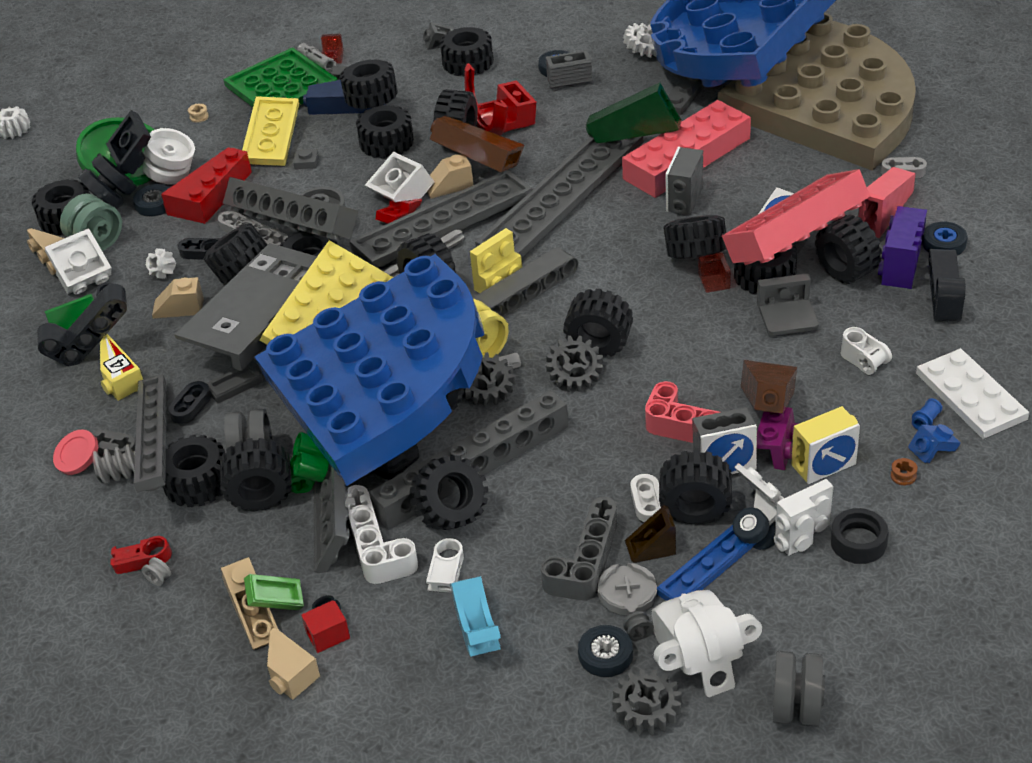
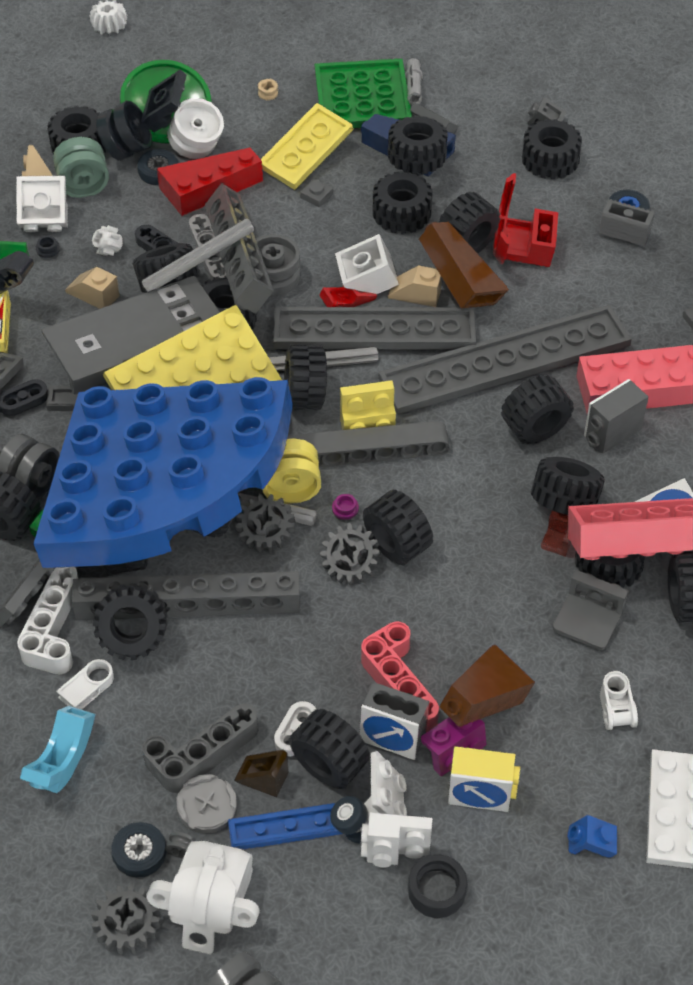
camera: 30 degrees right, 10 degrees up
(267, 221) = (198, 255): none -> light grey axle
(333, 46) = (438, 79): clear red bracket -> none
(535, 339) = (345, 507): none -> magenta plate
(625, 201) = (537, 409): none -> black tyre
(635, 116) = (624, 319): dark green slope -> none
(904, 478) = (539, 839): dark orange bush -> none
(927, 413) = (613, 805): blue pin -> none

